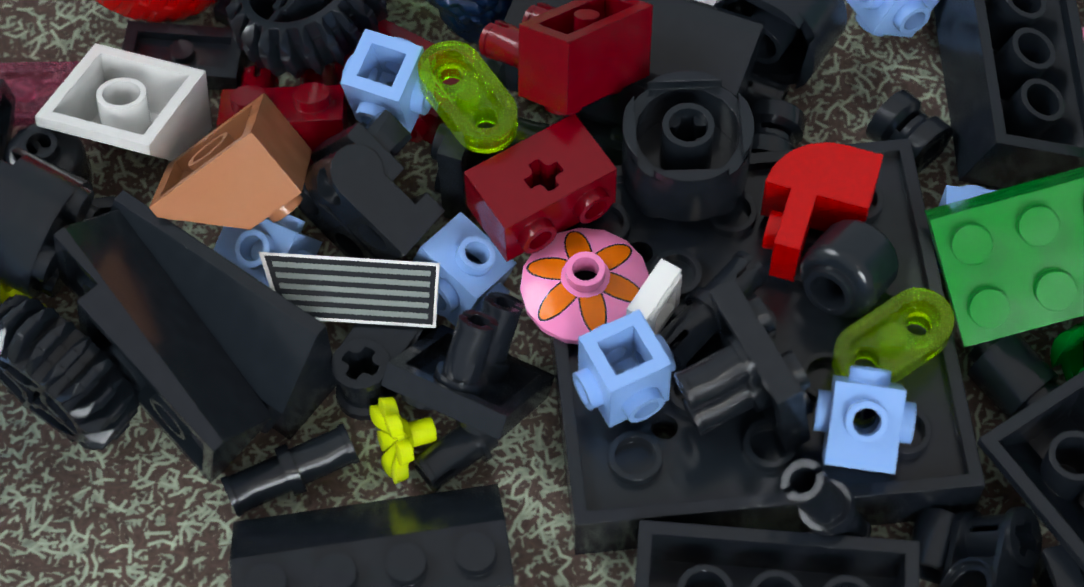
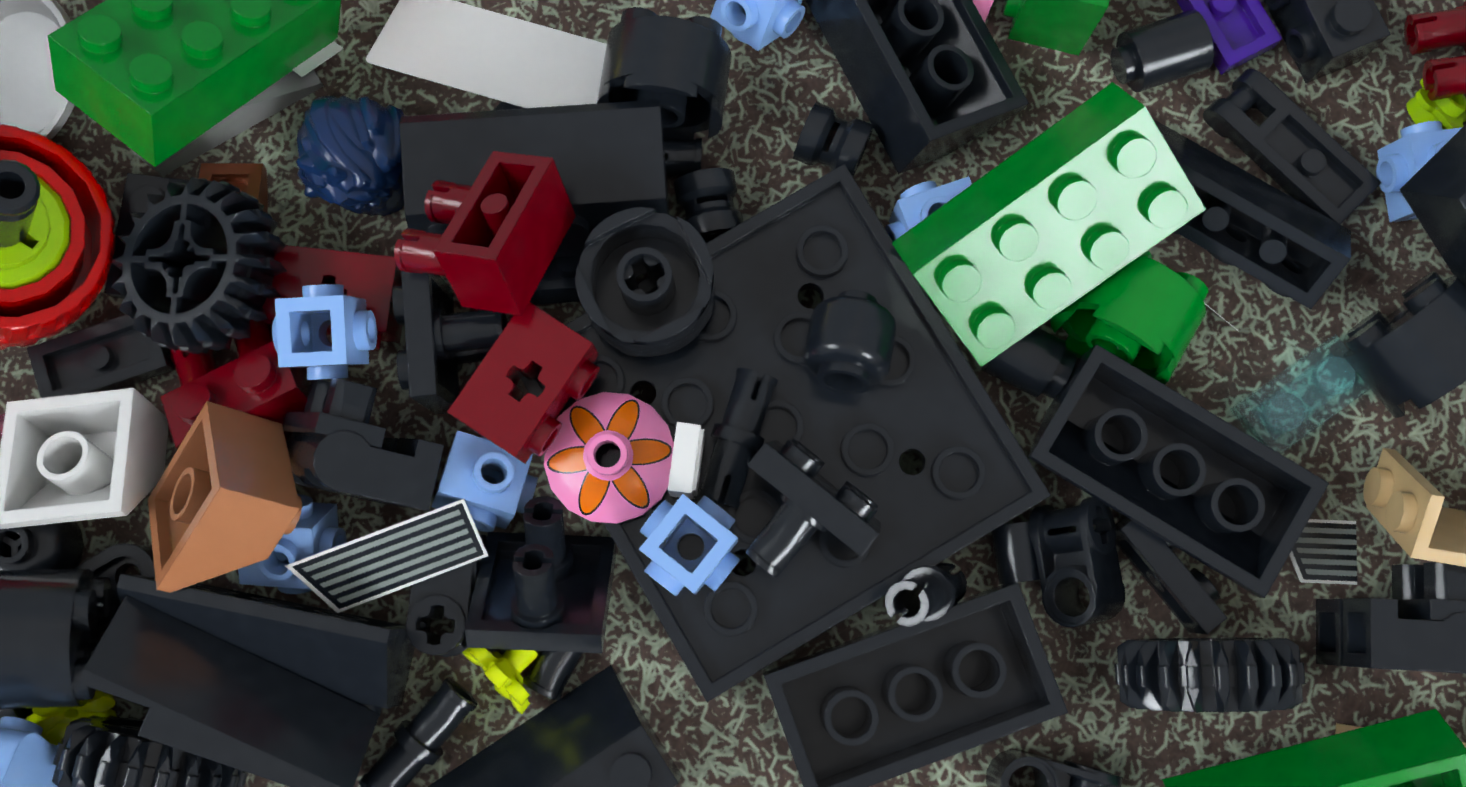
camera: 25 degrees left, 20 degrees up
(471, 101) = (415, 332): clear neon green plate -> none
(814, 190) = (788, 266): red brick -> none
(868, 445) = (930, 502): light blue brick -> none
(886, 340) = (918, 399): clear neon green plate -> none

